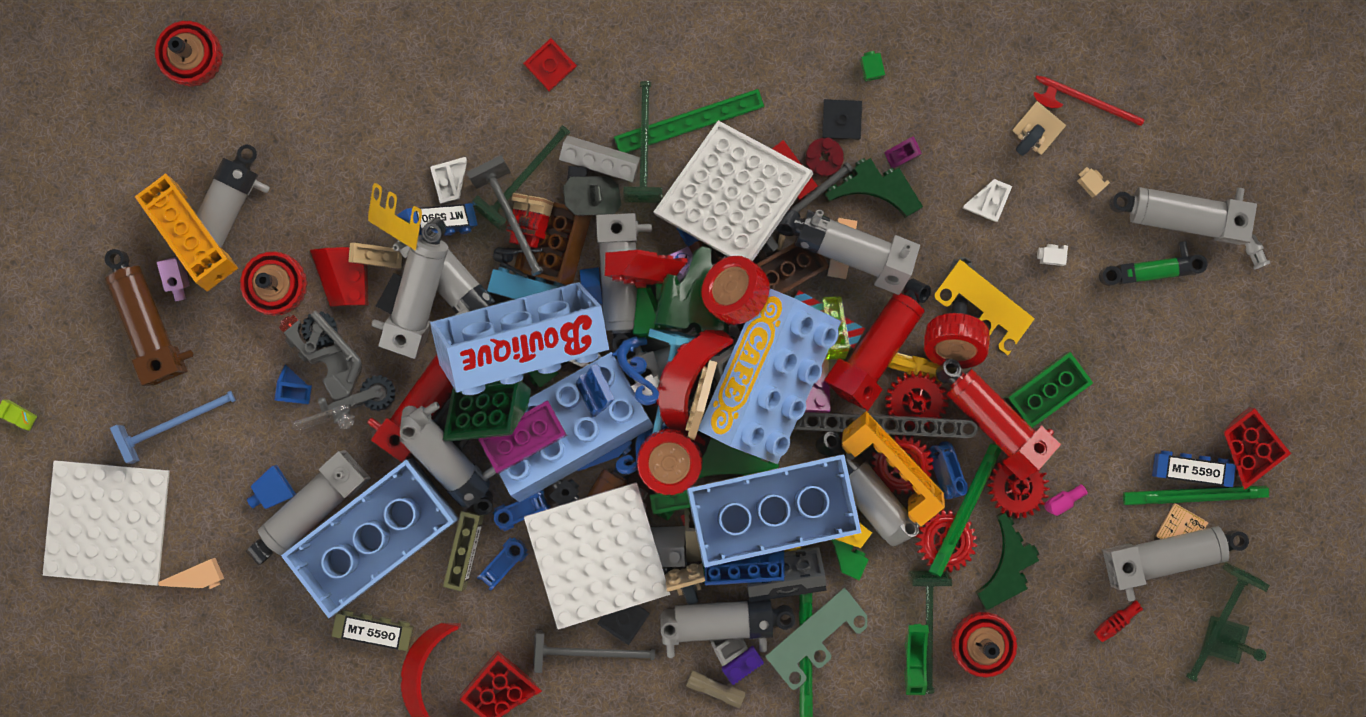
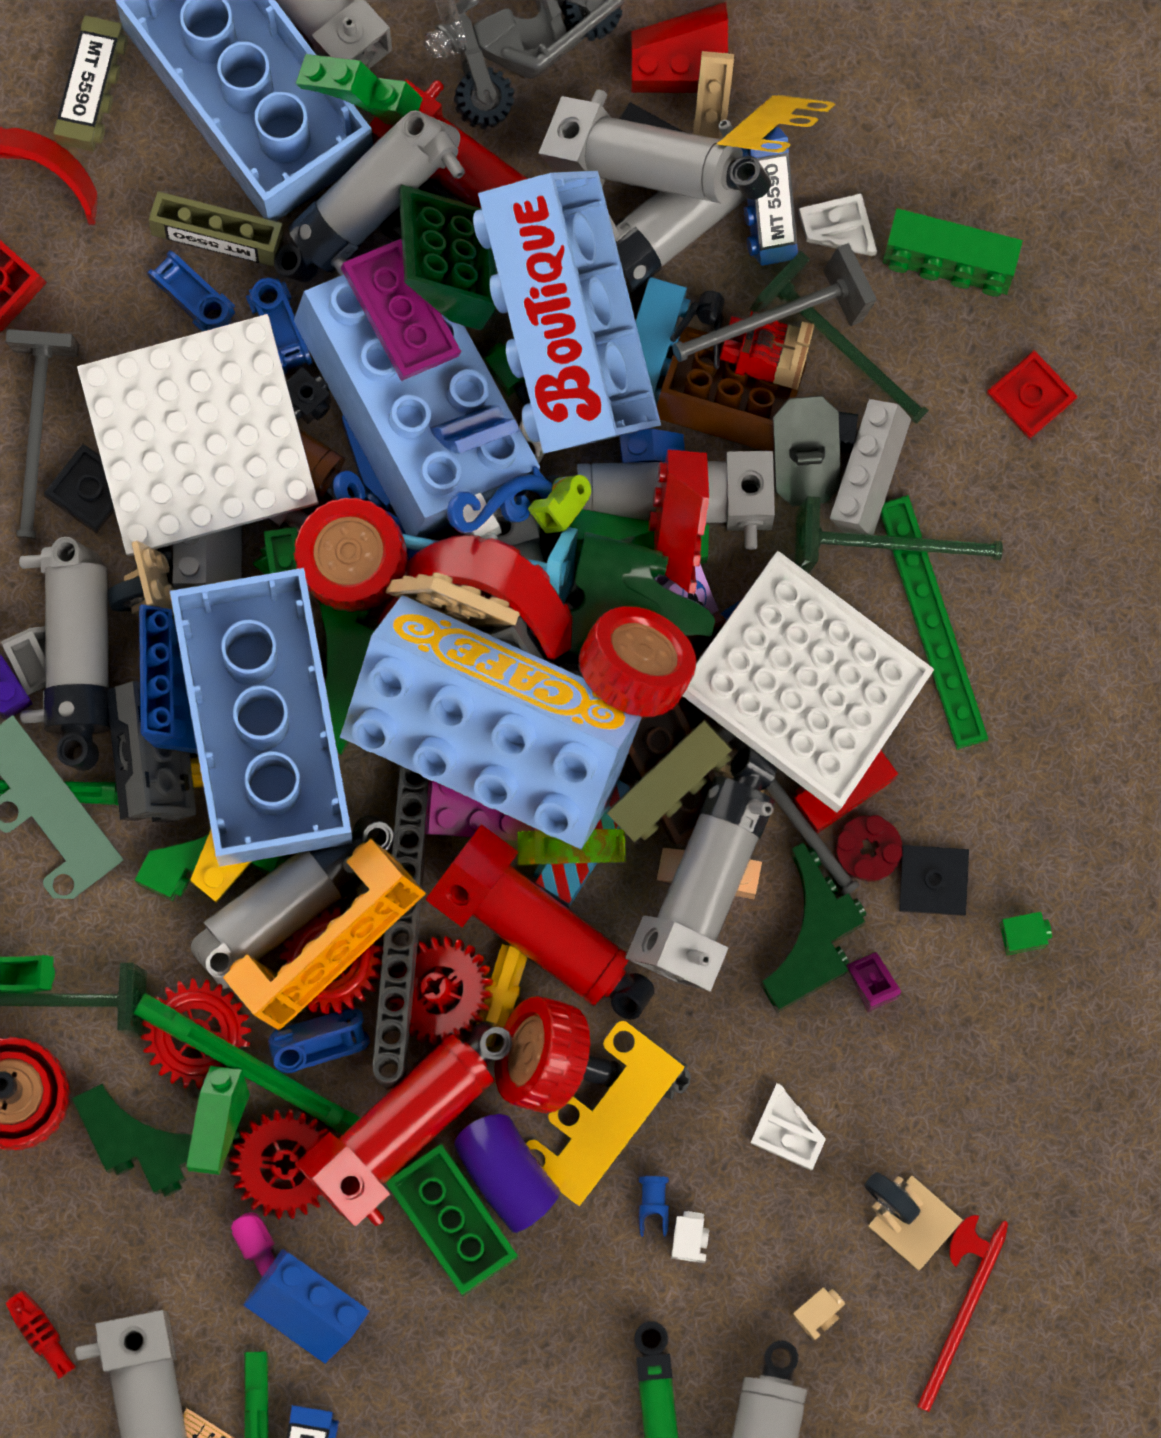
camera: 85 degrees right, 10 degrees down
(381, 467) = (359, 86): none -> green arch
(466, 111) = (952, 252): none -> green brick
(634, 337) = (563, 503): none -> lime leg
(797, 271) = (670, 780): none -> olive brick
(999, 526) = (217, 1119): none -> green slope
(1022, 358) = (506, 1171): none -> dark purple brick
(1032, 276) = (653, 1201): none -> blue piece
(1099, 470) = (305, 1307): none -> blue slope

